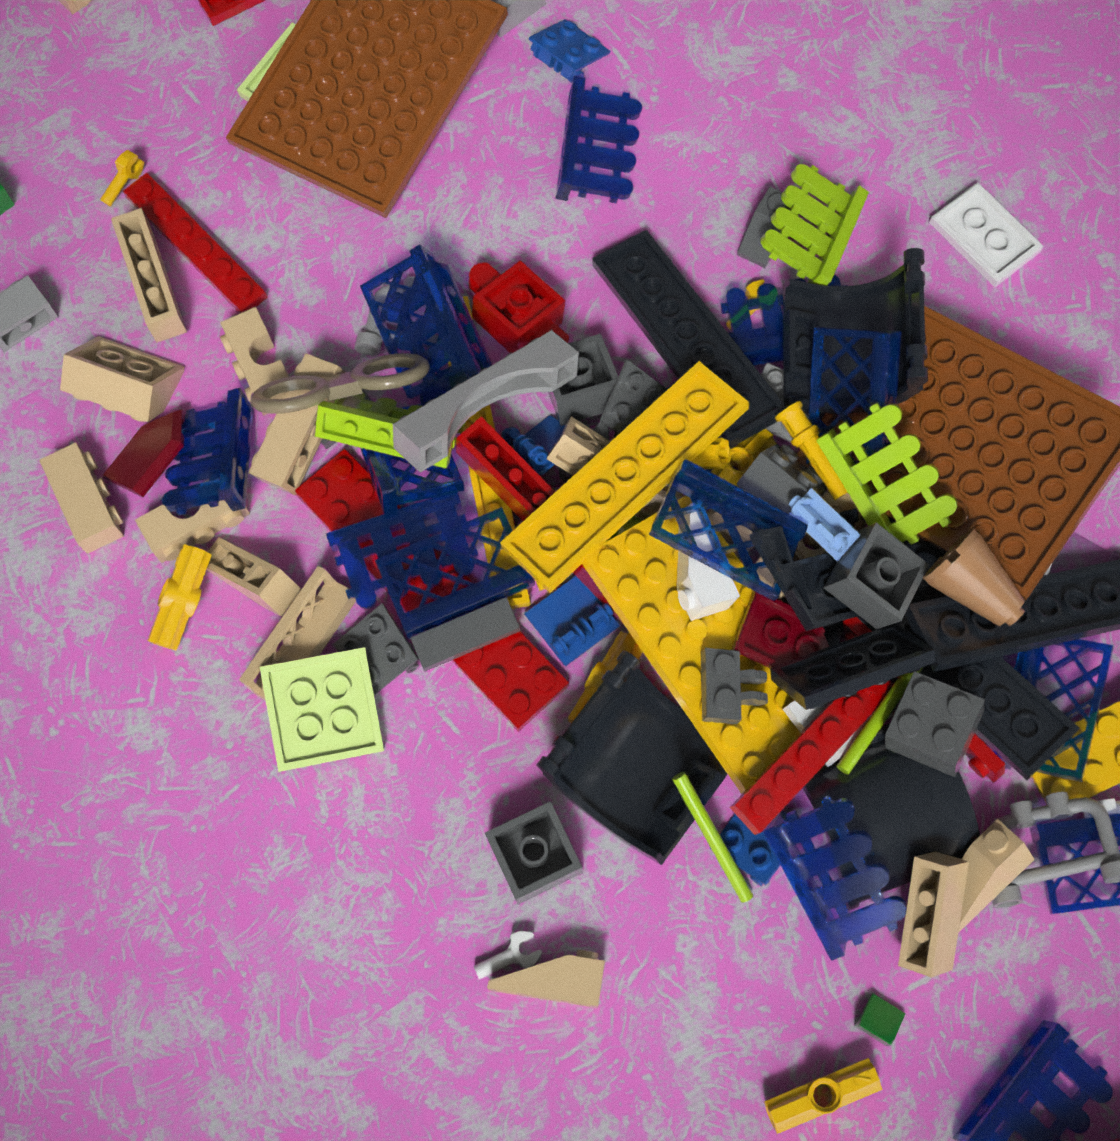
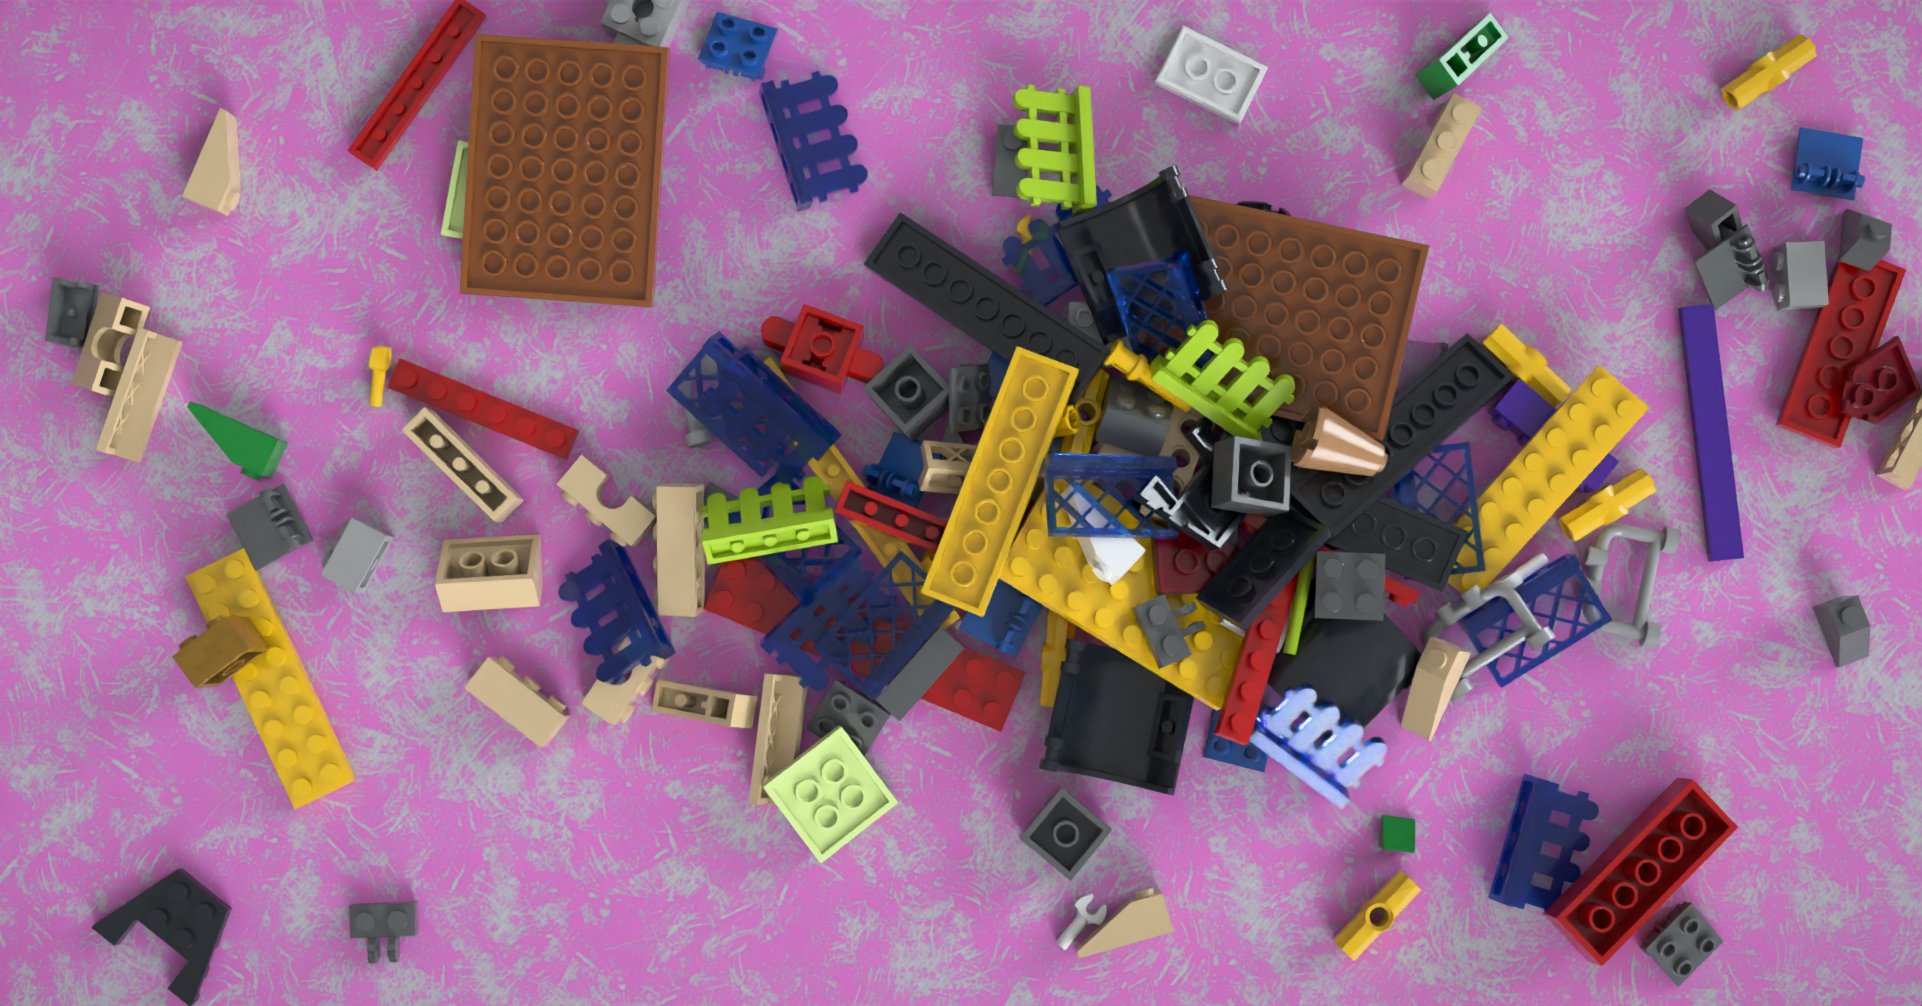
camera: 30 degrees left, 15 degrees up
(148, 454) = (556, 635): dark red tile -> none
(179, 597) = (654, 752): yellow piece -> none
(339, 385) = (706, 507): dark tan bar -> none
(537, 367) = (876, 411): light grey arch -> none
(712, 837) = (1205, 753): lime bar -> none
(824, 523) = (1188, 449): light blue hinge -> none
(933, 914) = (1408, 736): tan brick -> none

